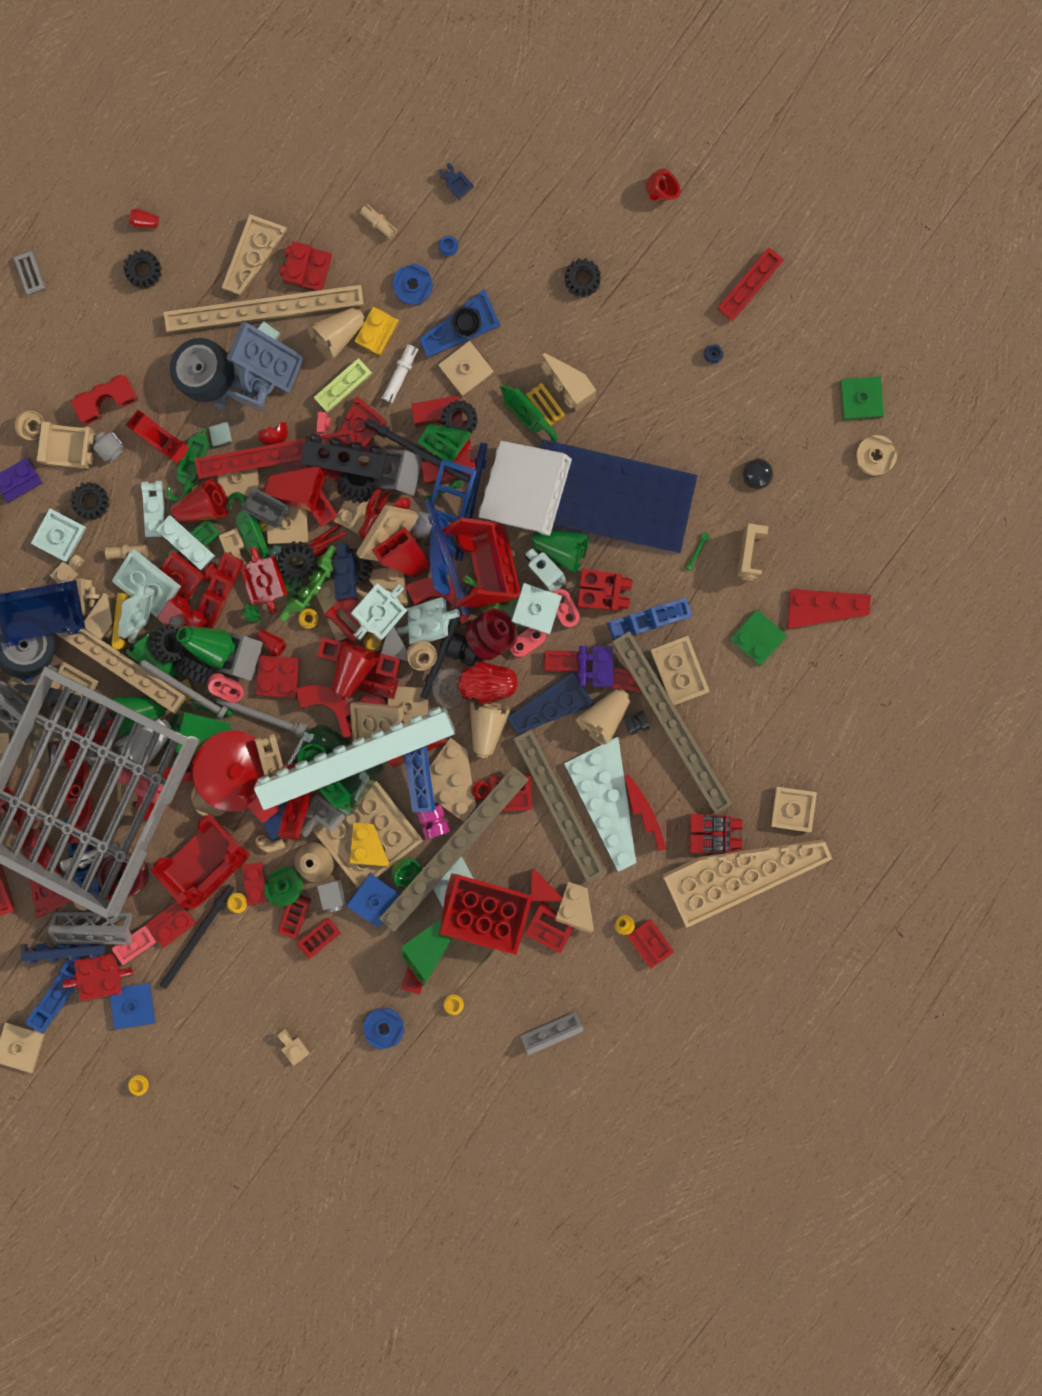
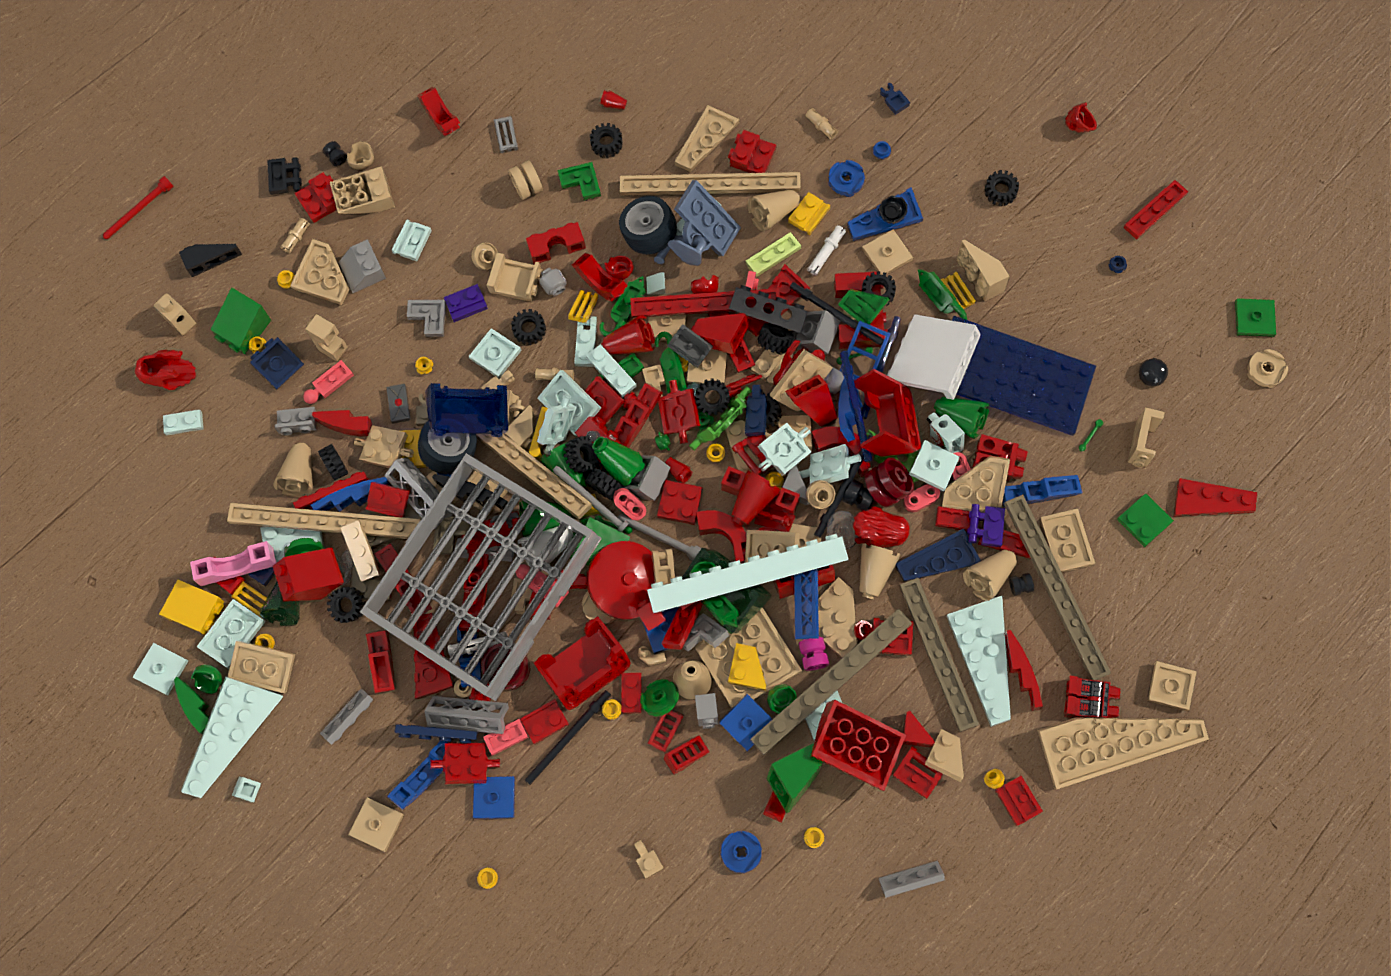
camera: 10 degrees right, 15 degrees down
(59, 330) = (526, 179): none -> tan wheel
(122, 315) = (581, 175): none -> green plate
(156, 459) = (587, 297): none -> yellow tile
(177, 421) = (619, 267): none -> red hair
(584, 626) = (979, 486): none -> tan plate

